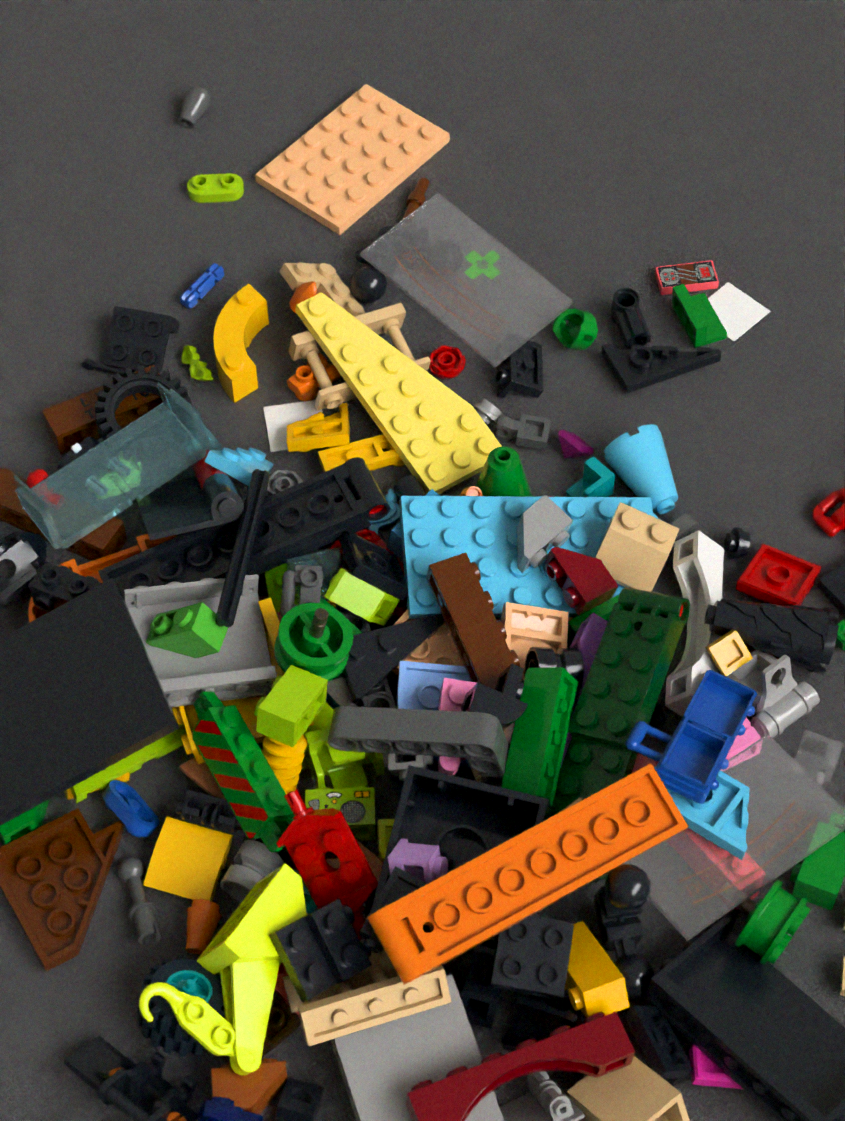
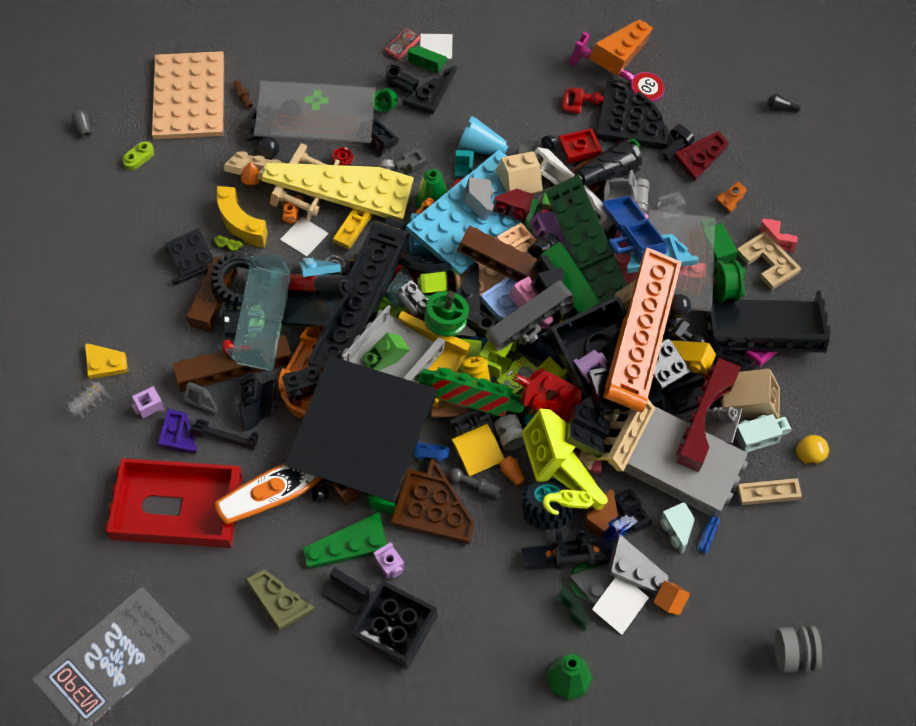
camera: 45 degrees left, 5 degrees up
(201, 286) = (187, 206): blue axle -> none
(242, 548) = (371, 298): black axle -> none
(291, 705) = (467, 345): lime brick -> none
(320, 431) = (323, 228): yellow wing -> none
(573, 445) = (437, 153): magenta slope -> none
(729, 652) = (601, 188): yellow tile -> none

